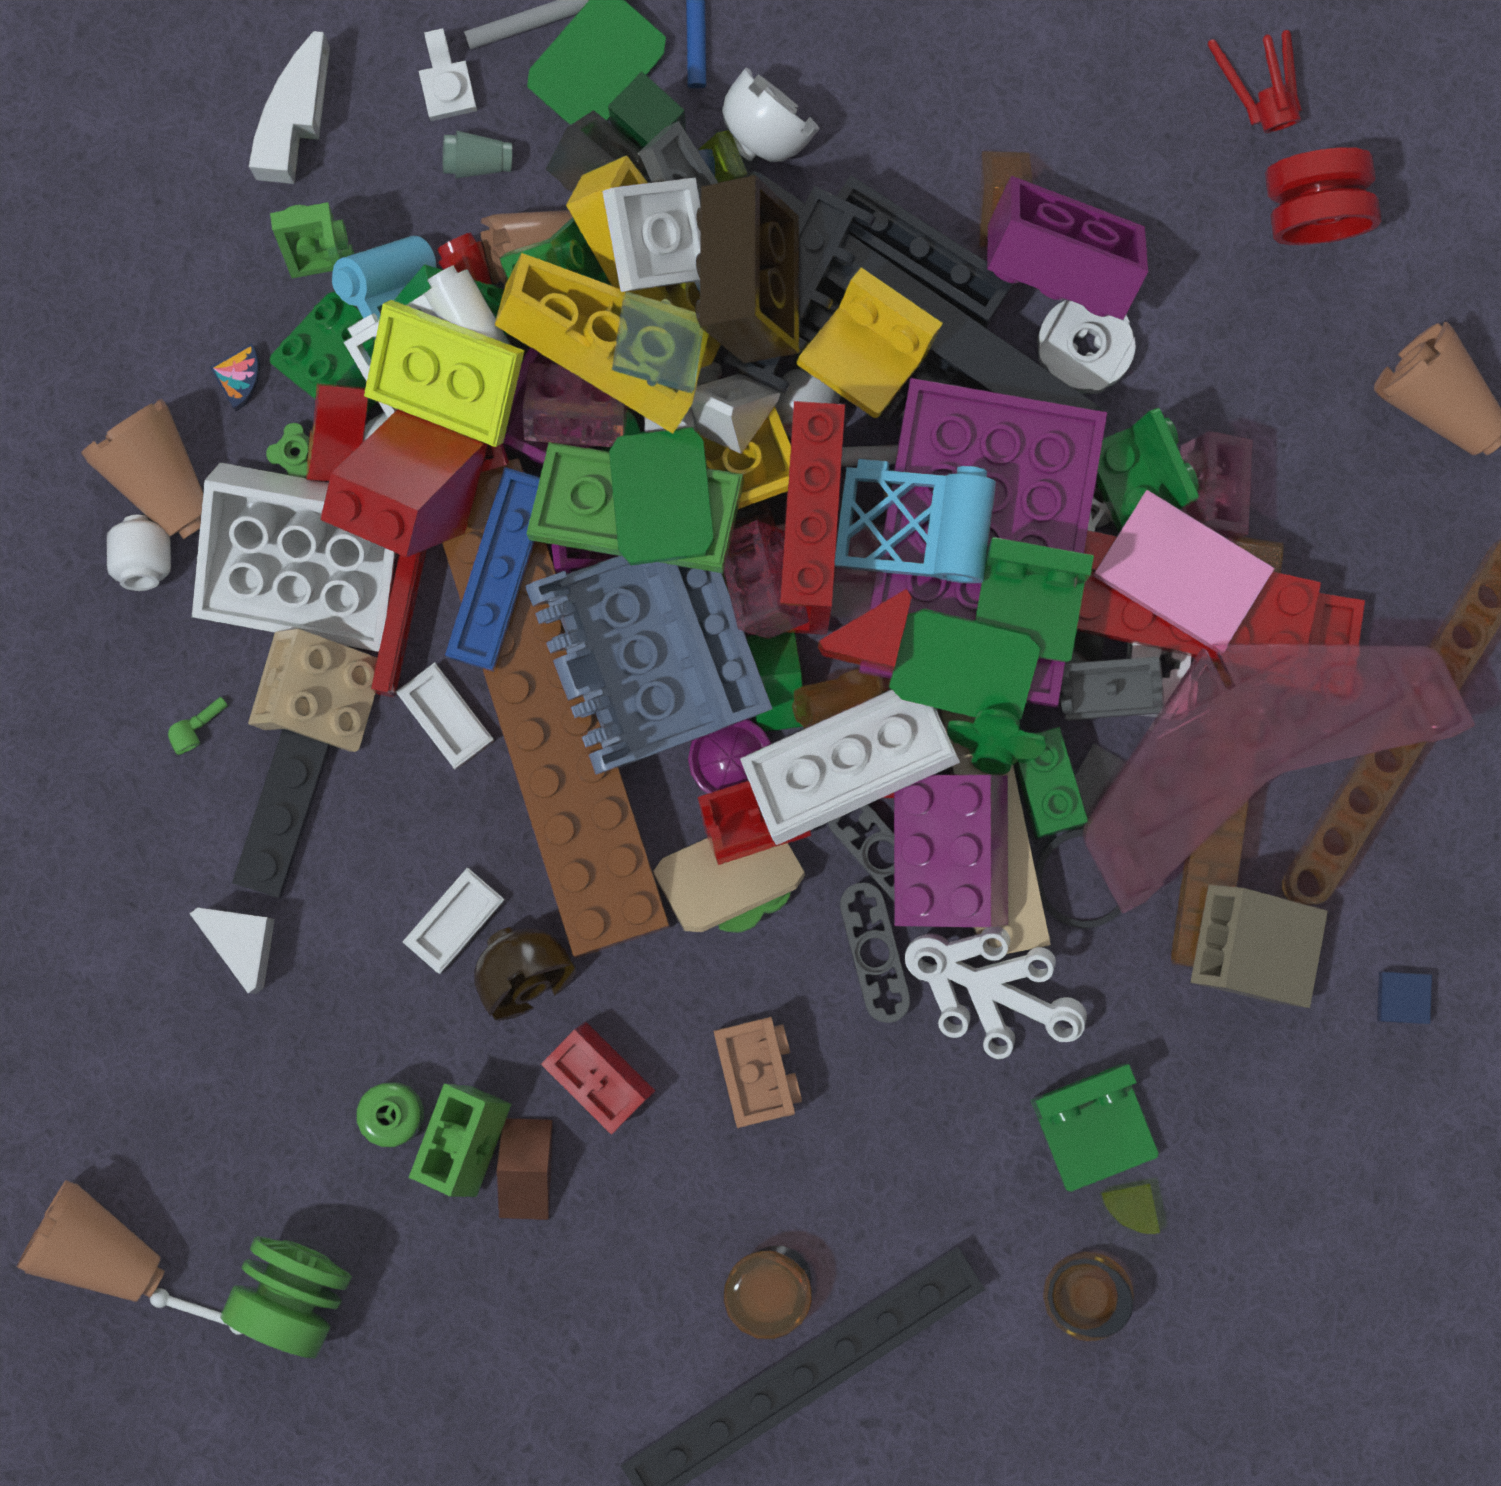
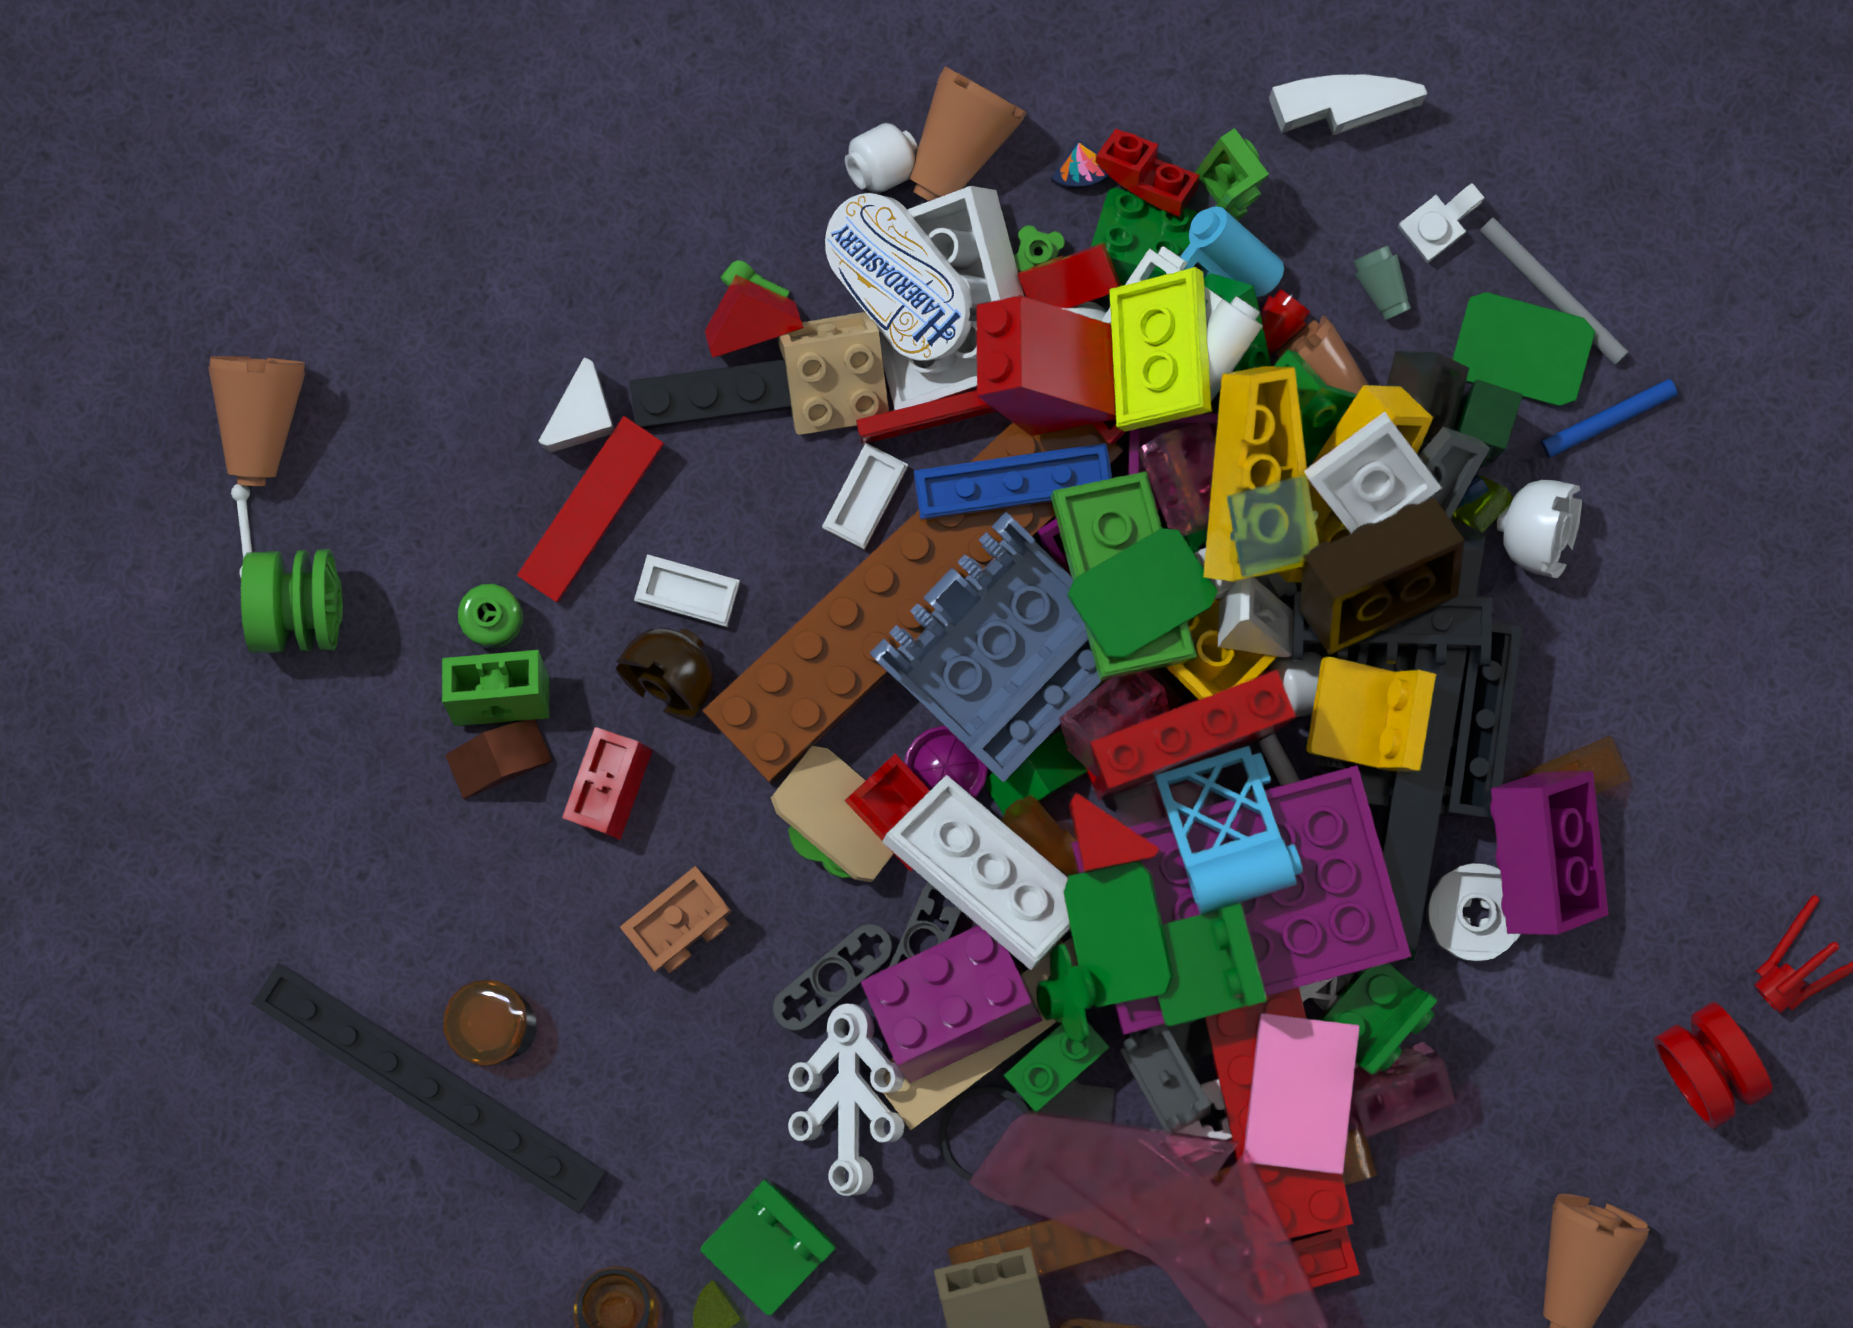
camera: 65 degrees right, 0 degrees up
(227, 743) = (750, 316): none -> red slope
(257, 587) = (898, 277): none -> white tile
(259, 327) = (1136, 167): none -> red slope
(335, 974) = (590, 509): none -> red tile

